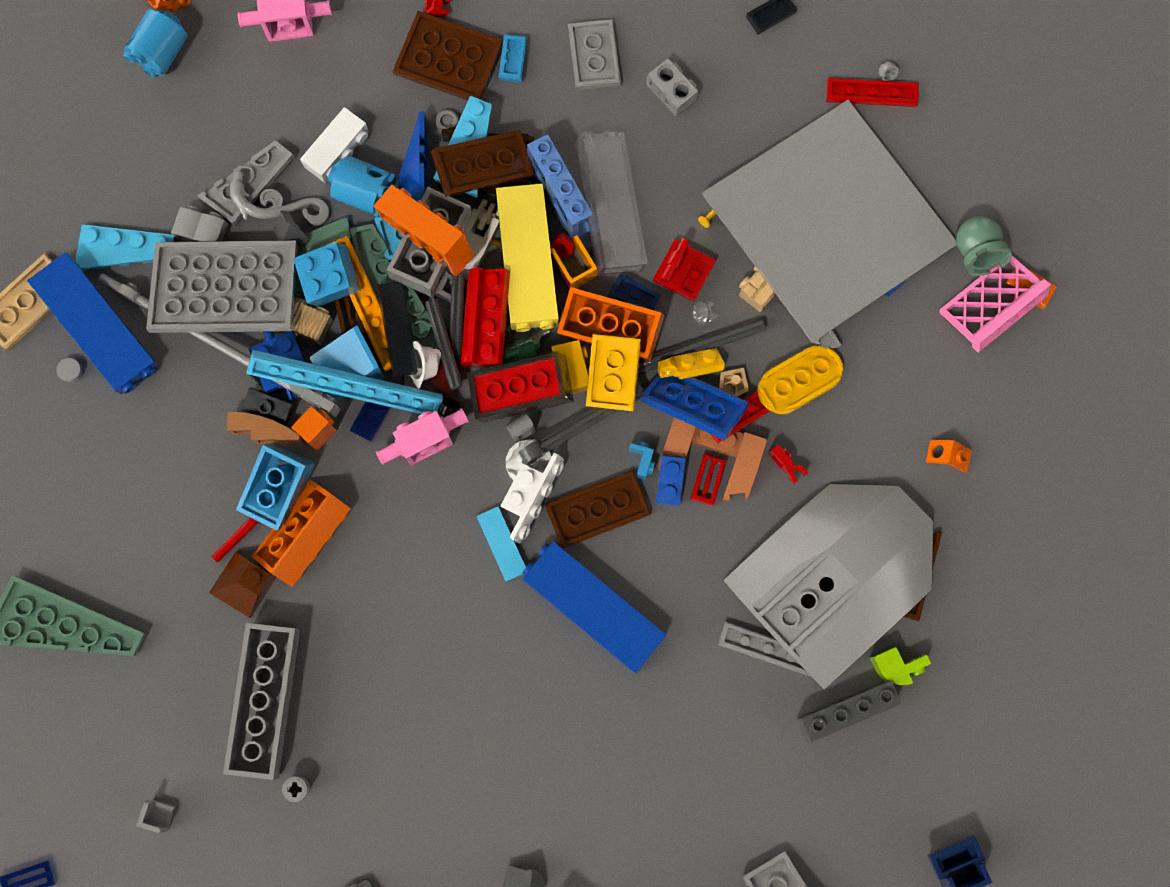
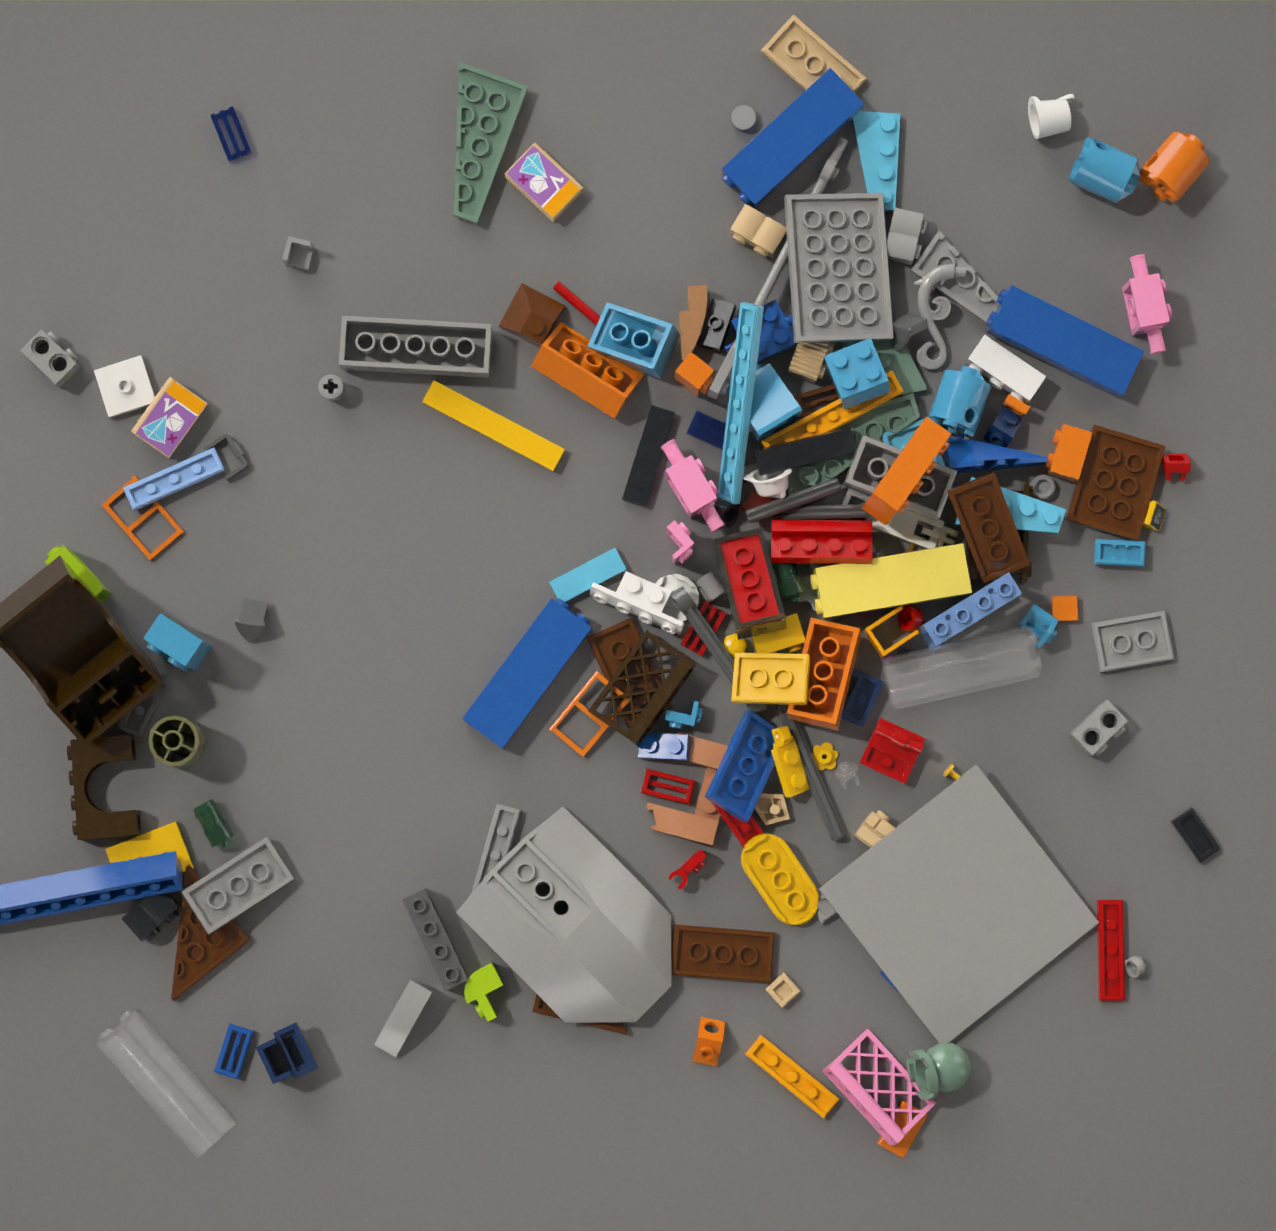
camera: 85 degrees right, 5 degrees up
(99, 90) = (1049, 116): none -> white hat
(110, 565) = (544, 182): none -> piece
(181, 361) = (758, 231): none -> tan brick
(312, 90) = (1064, 341): none -> blue brick
(347, 629) = (493, 426): none -> yellow tile
(369, 138) = (1016, 405): none -> orange tile
(389, 150) = (1003, 428): none -> dark blue bracket
(389, 479) = (648, 456): none -> black tile
(417, 94) = (1068, 453): none -> orange brick
(471, 450) = (681, 536): none -> bright pink bracket
(480, 26) = (1154, 516): none -> slope
(547, 419) = (713, 610): none -> red tile
(560, 110) = (1064, 608): none -> orange tile
(572, 128) = (1041, 623): none -> dark azure bracket
(577, 408) = (734, 645): none -> yellow tile
(627, 480) = (661, 698): none -> dark brown fence
(648, 536) = (575, 701): none -> orange window
(679, 331) = (826, 749): none -> yellow plant
(867, 437) = (722, 953): none -> reddish brown tile
(902, 384) = (782, 990): none -> tan tile
(923, 746) = (403, 1018): none -> light grey slope
(982, 381) = (792, 1076): none -> light orange tile

